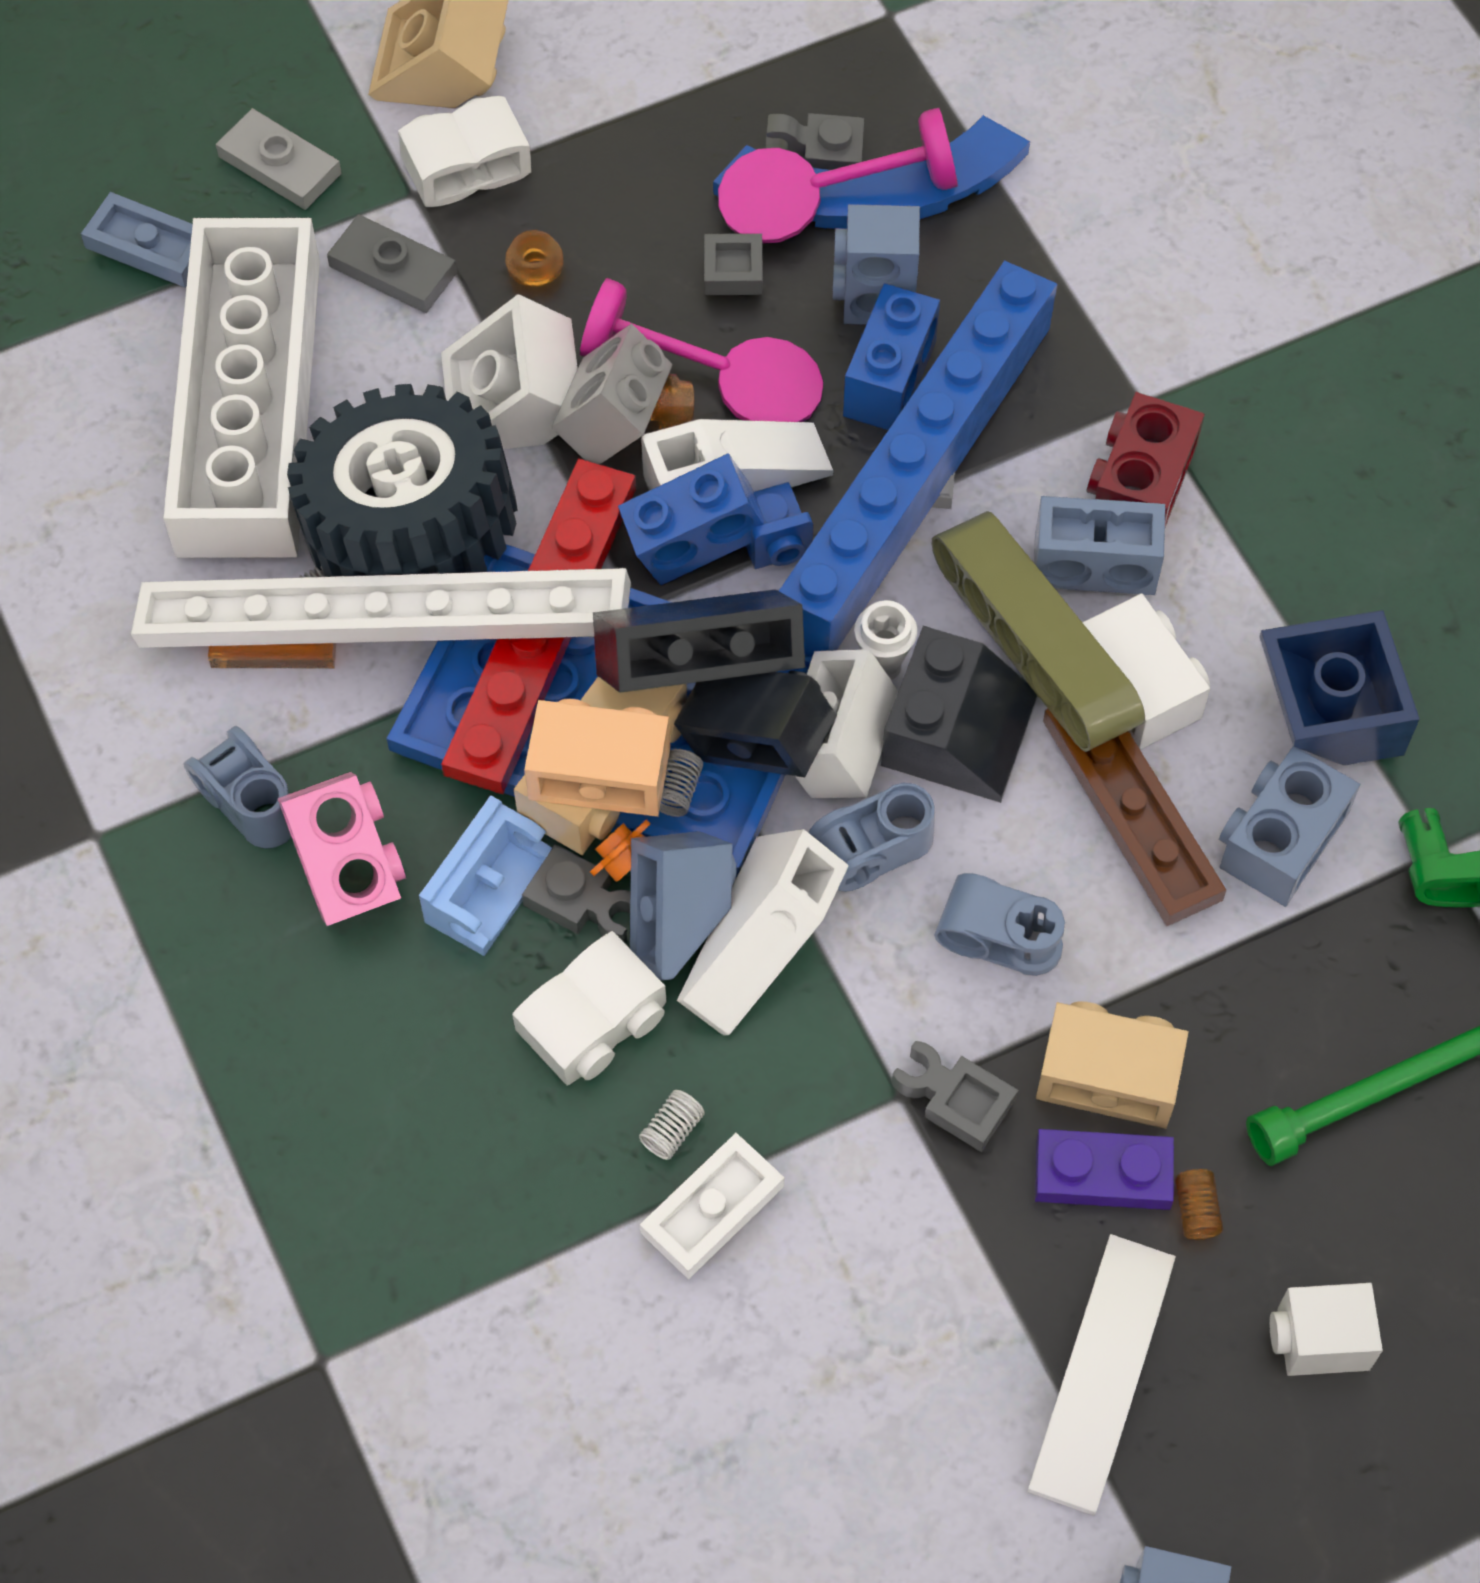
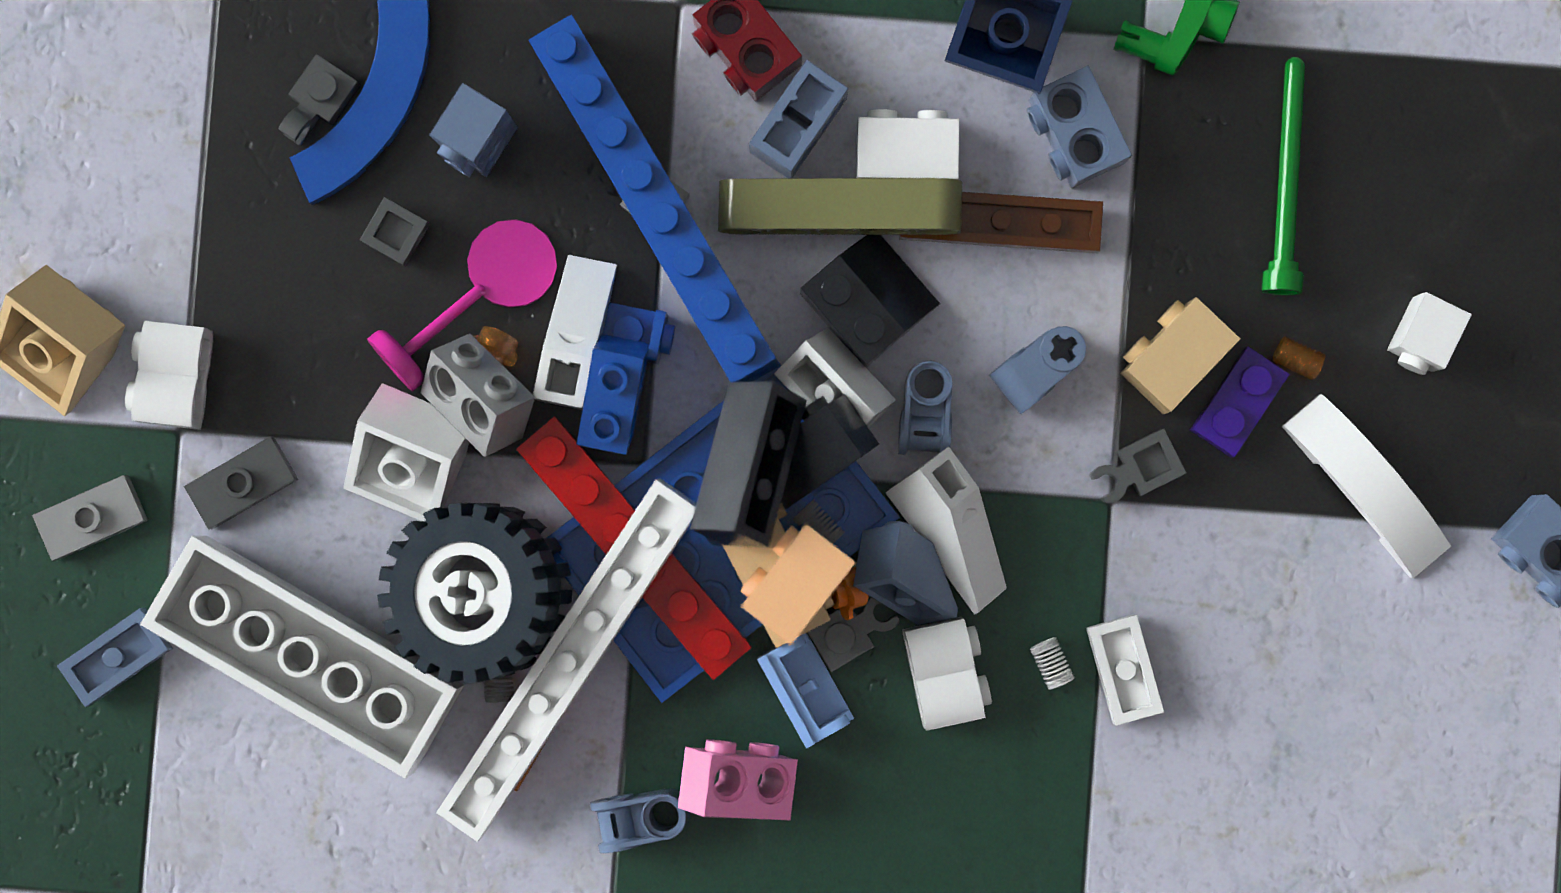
camera: 55 degrees left, 25 degrees up
(534, 246) = (286, 375): clear orange plate -> none
(779, 192) = (349, 164): dark pink piece -> none
(888, 633) = (788, 301): white cone -> none
(890, 356) = (551, 167): blue brick -> none

